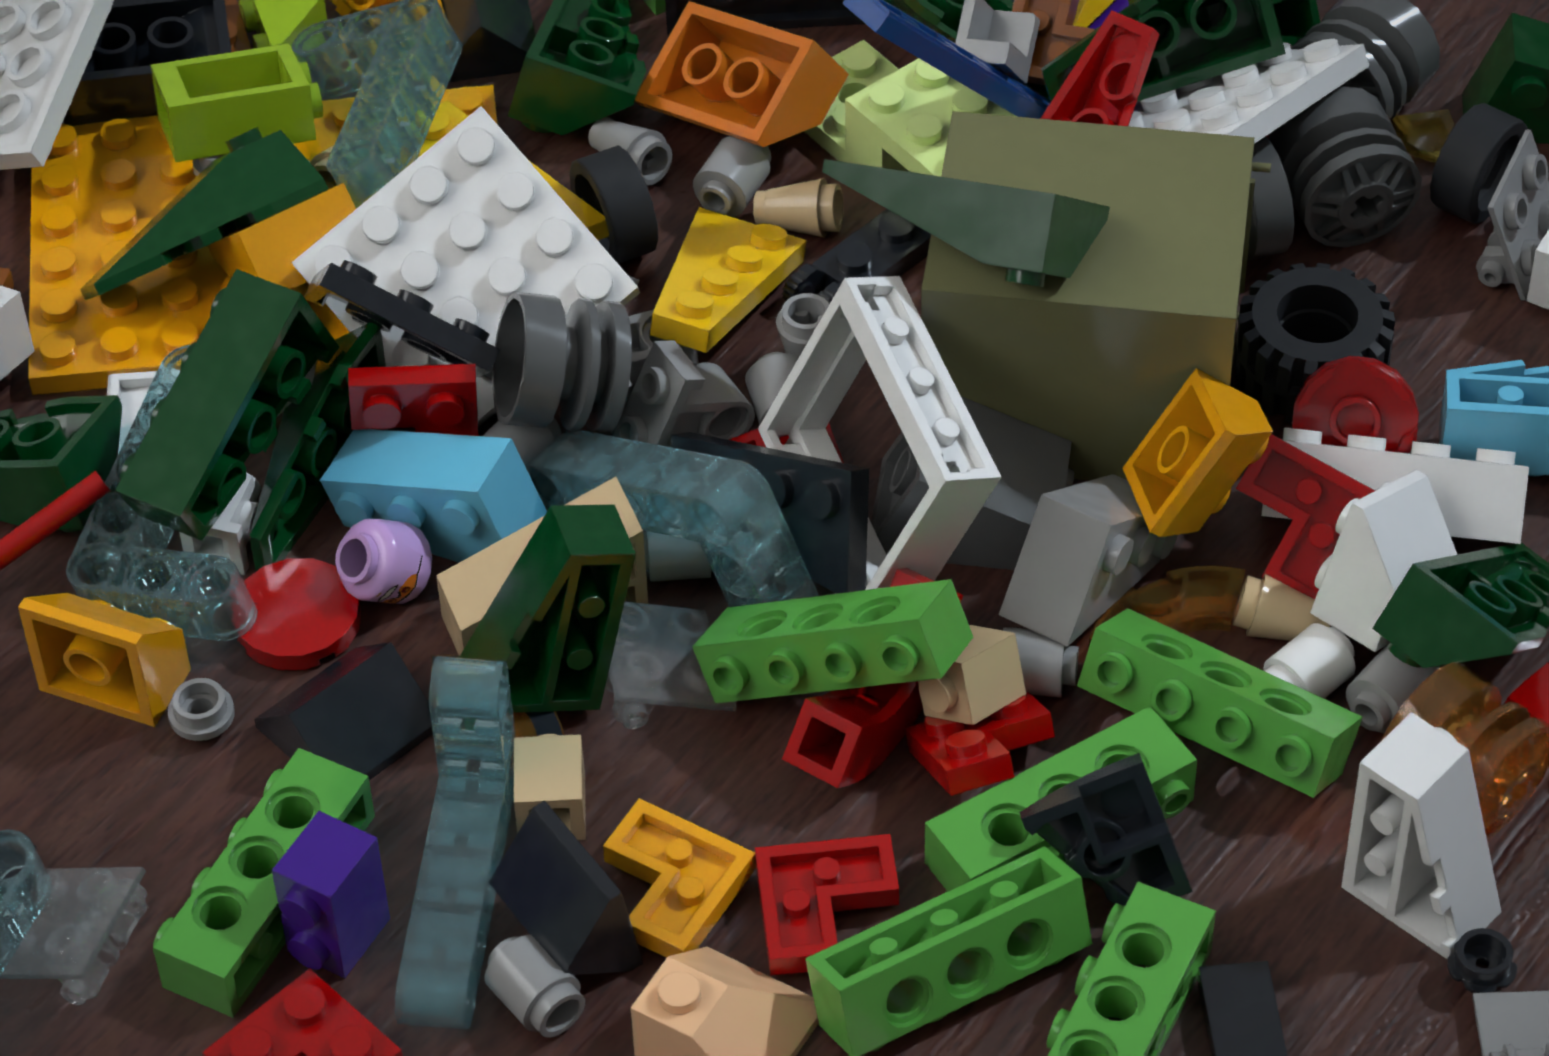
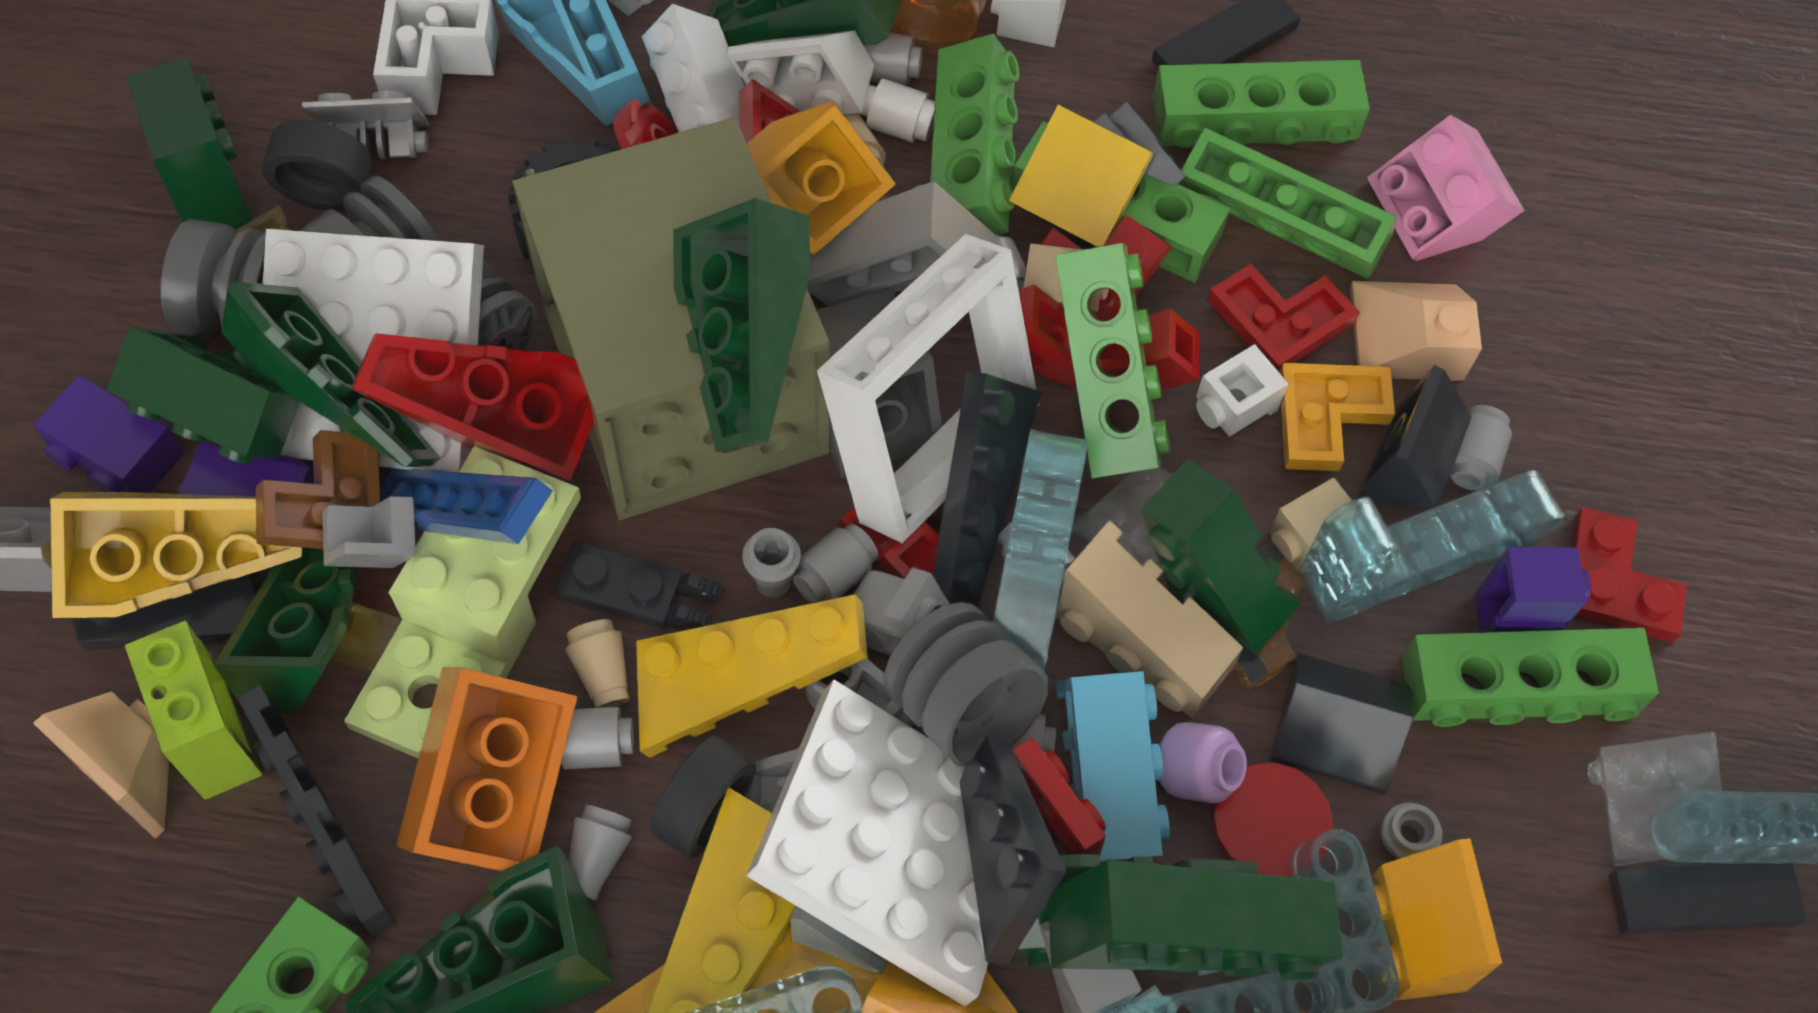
camera: 125 degrees left, 15 degrees up
(747, 796) = (1240, 391): none -> white brick
(1087, 735) = (1081, 176): none -> yellow tile

